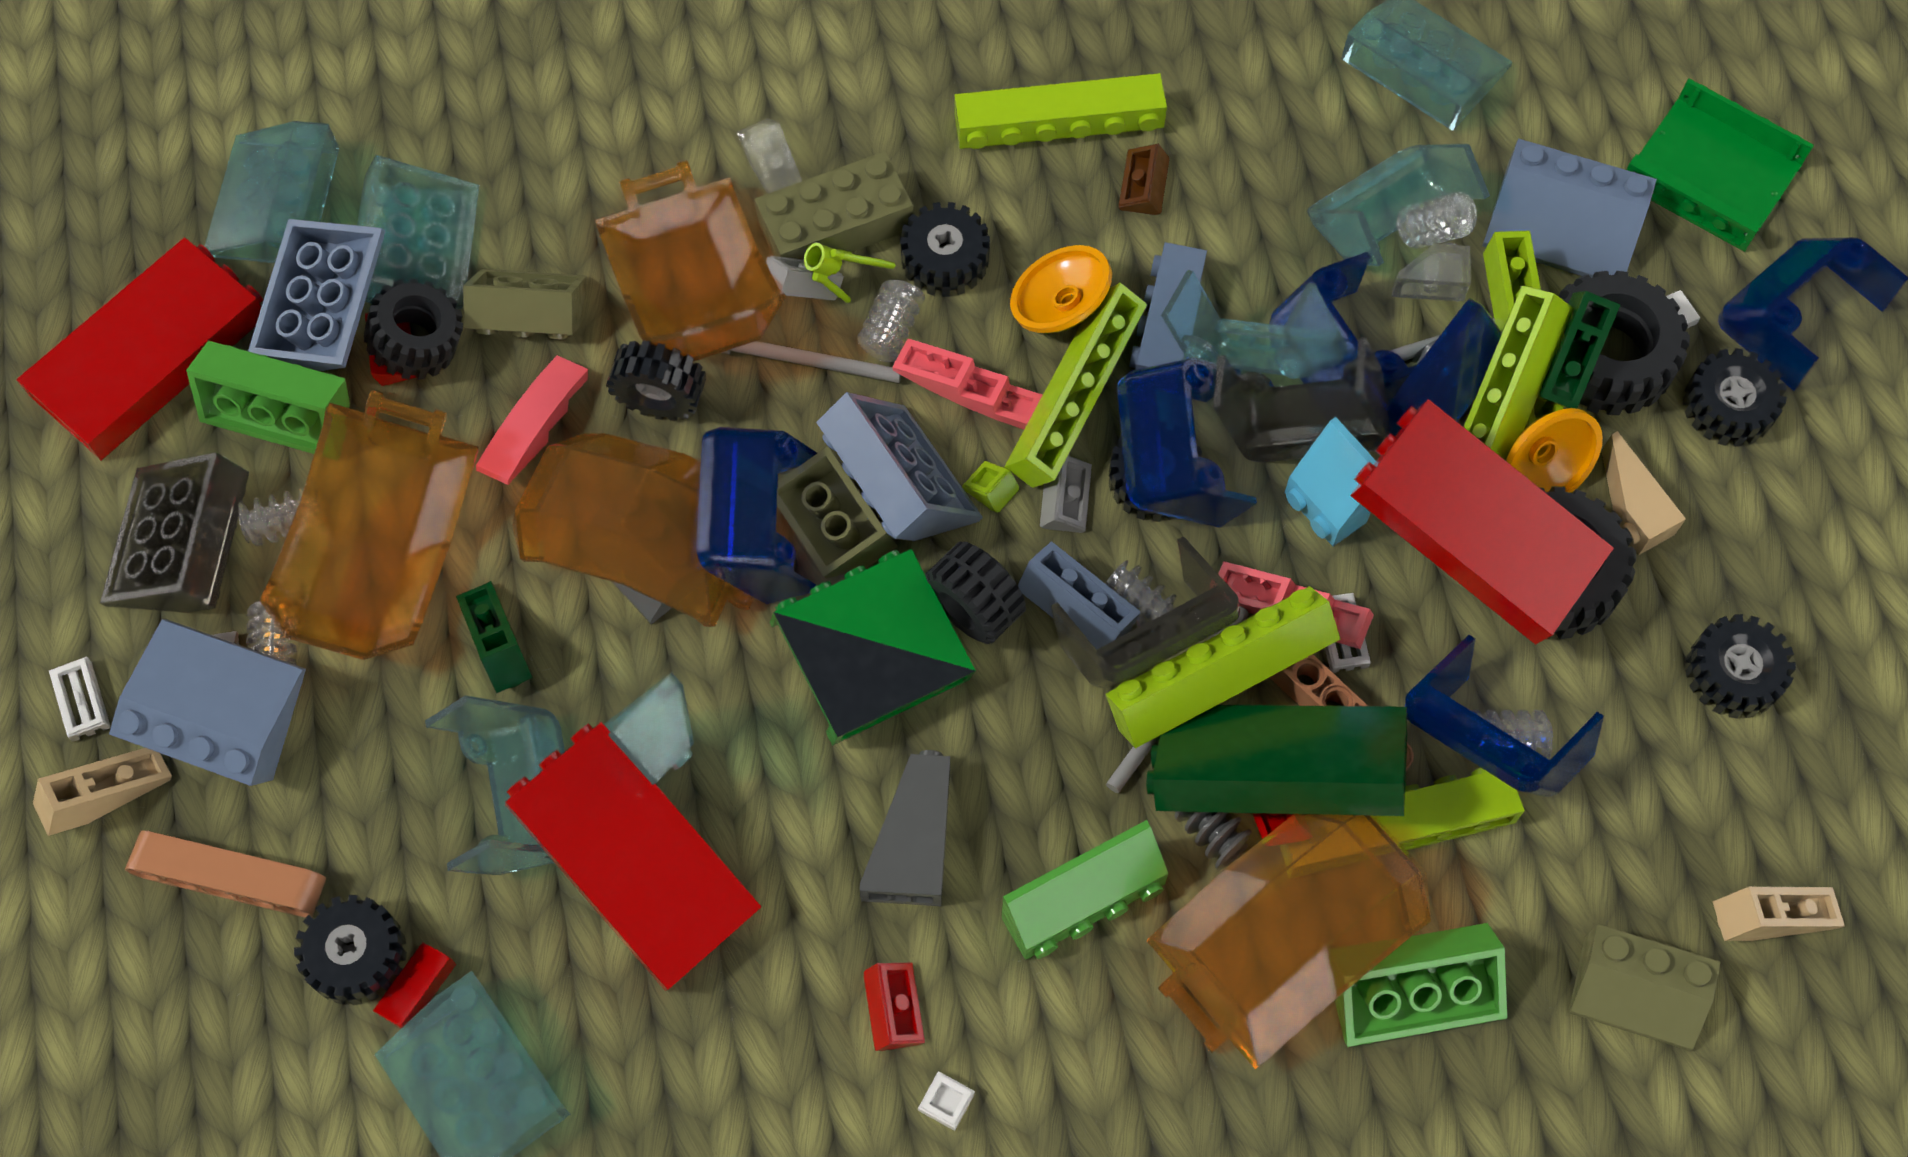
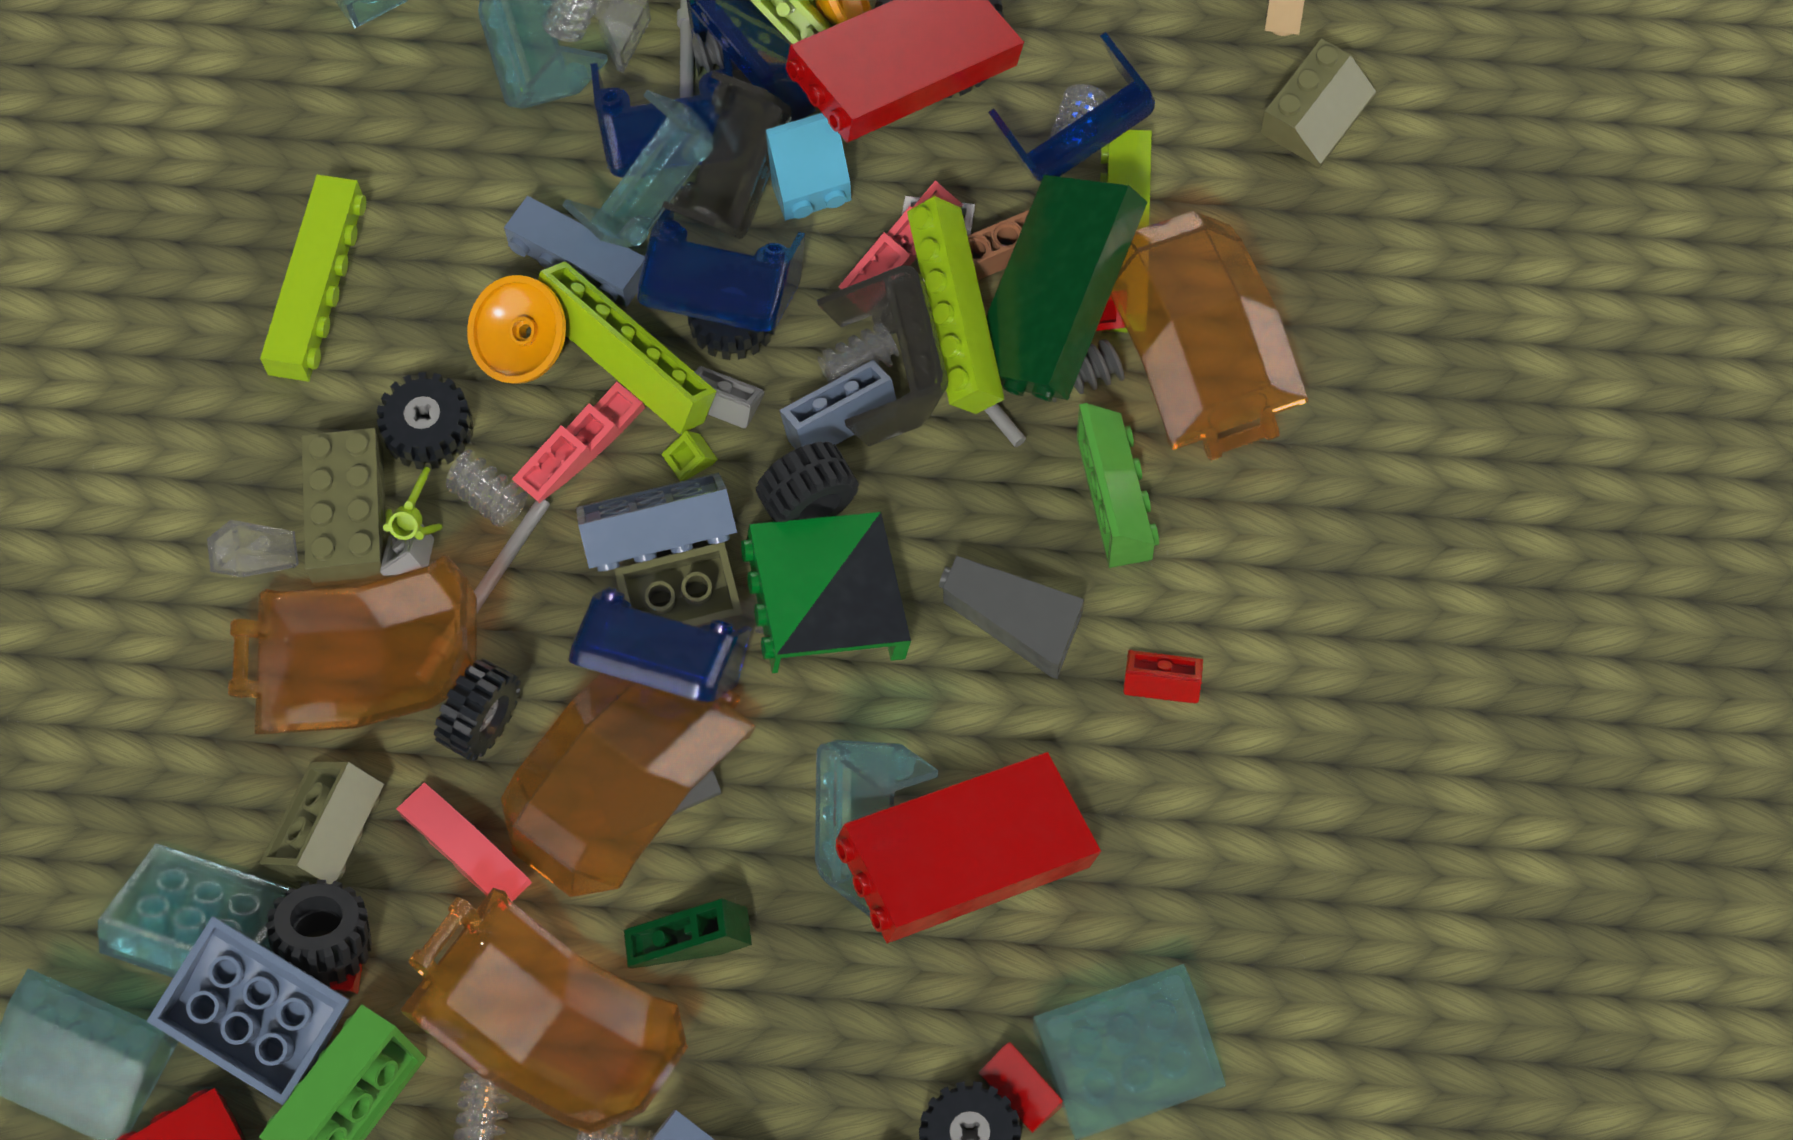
camera: 70 degrees left, 0 degrees up
(512, 744) = (840, 941): clear light blue windscreen -> none
(946, 1101) = (1260, 655): white tile -> none
(1144, 180) = (416, 232): reddish brown slope -> none
(1428, 987) = (1278, 241): bright green slope -> none

